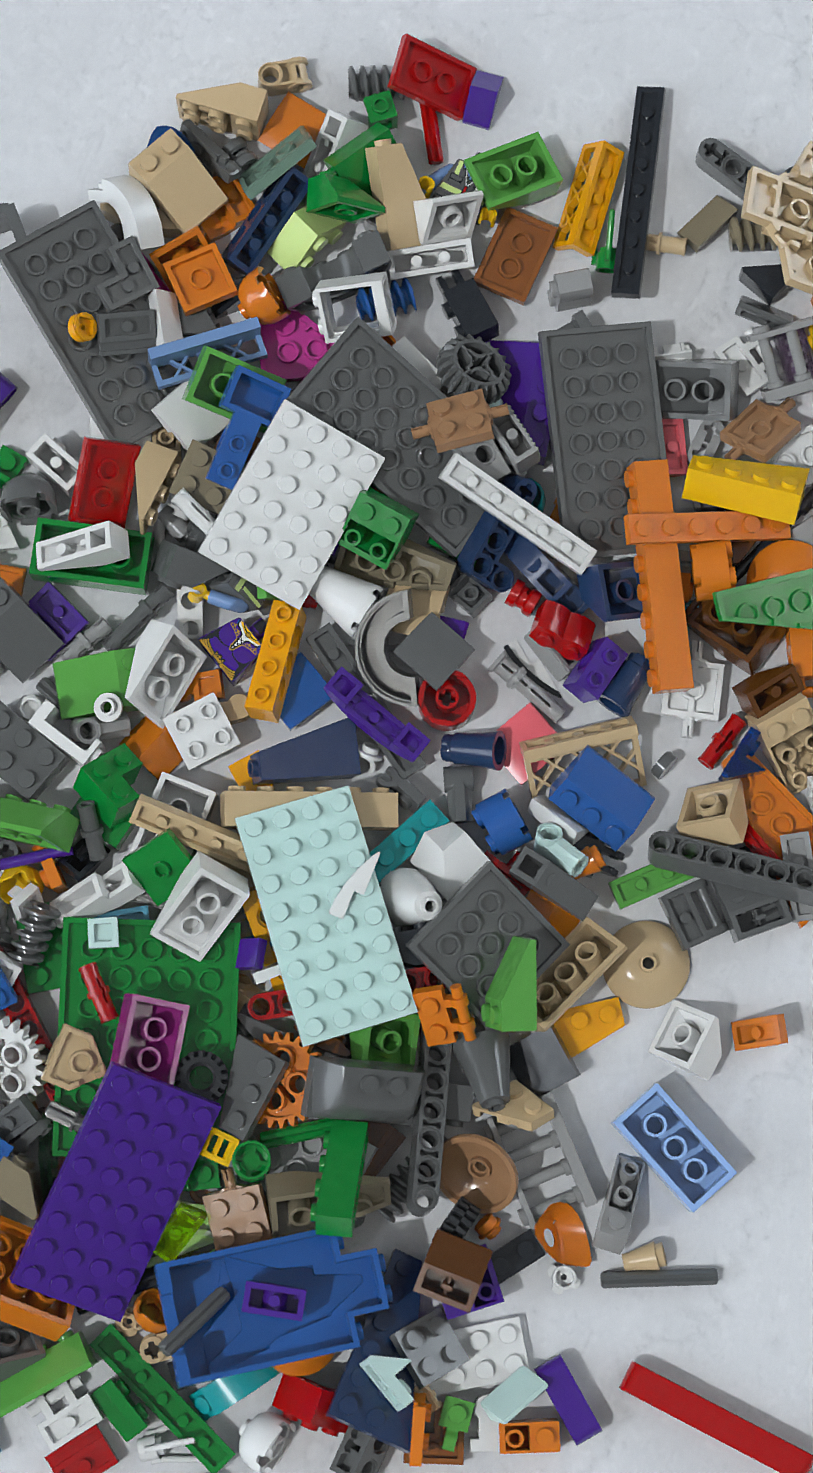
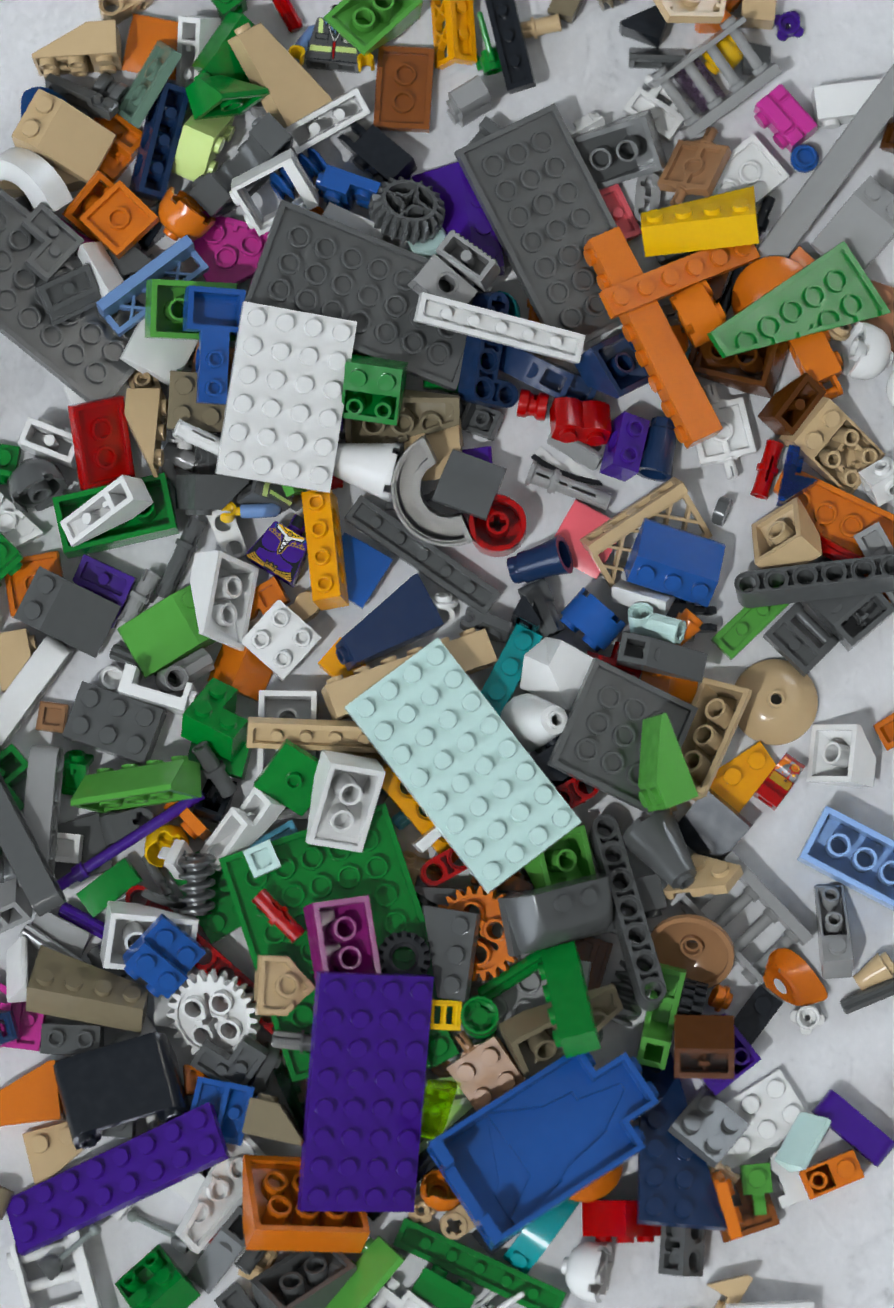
camera: 10 degrees left, 0 degrees up
(82, 327) = (27, 304): light orange tile -> none
(116, 710) = (195, 649): white plate -> none
(194, 1321) = (483, 1182): dark grey axle -> none
(251, 954) = (406, 827): dark purple tile -> none
(274, 1300) = (550, 1135): dark purple brick -> none
(357, 882) = (480, 724): white sticker -> none
(374, 718) = (435, 567): dark purple slope -> none
(383, 1372) = (675, 1165): light aqua slope -> none
(419, 1231) = (659, 1024): none -> bright green arch
(423, 328) = (345, 187): none -> blue plate
(436, 1016) = (599, 818): orange plate -> none
(440, 795) = (525, 615): none -> black slope
(447, 217) = (328, 75): white slope -> none
(460, 420) = (413, 261): medium nougat plate -> none
(622, 1042) = (779, 781): none -> red leg

